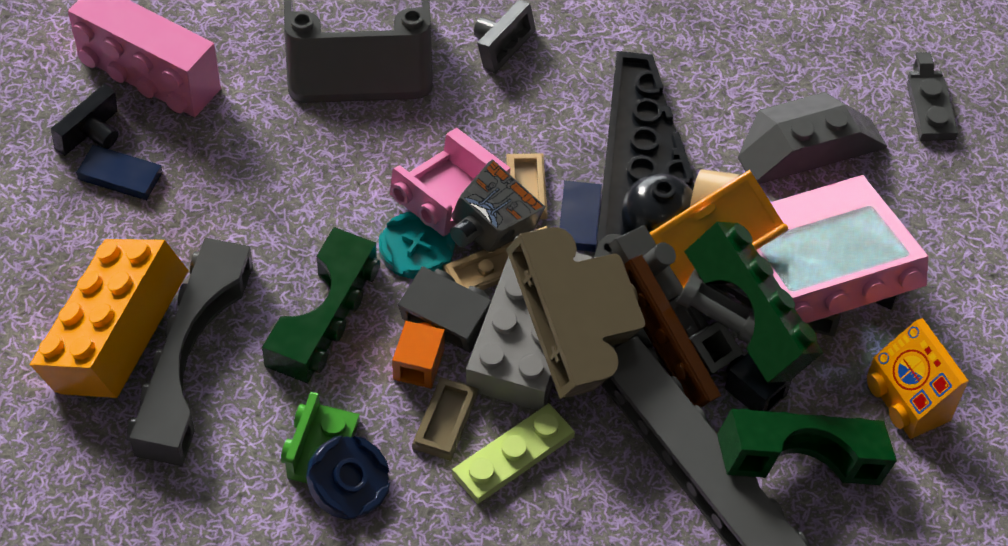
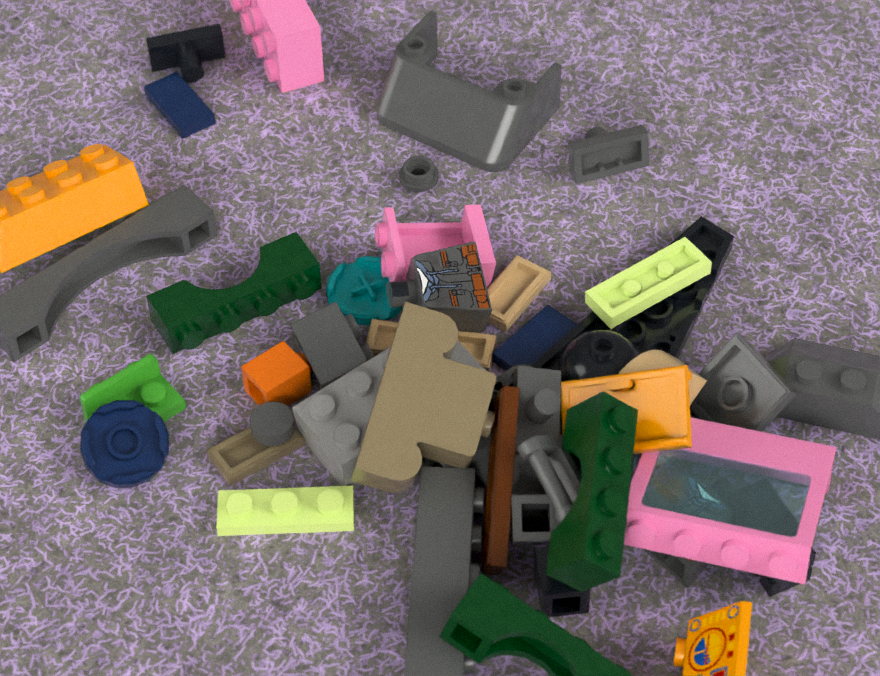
camera: 40 degrees right, 5 degrees down
(373, 120) = (418, 174): none -> dark grey plate
(450, 391) = (272, 423): none -> dark grey tile
(631, 123) = (647, 282): none -> yellowish green plate
(771, 161) = (741, 388): none -> dark grey plate

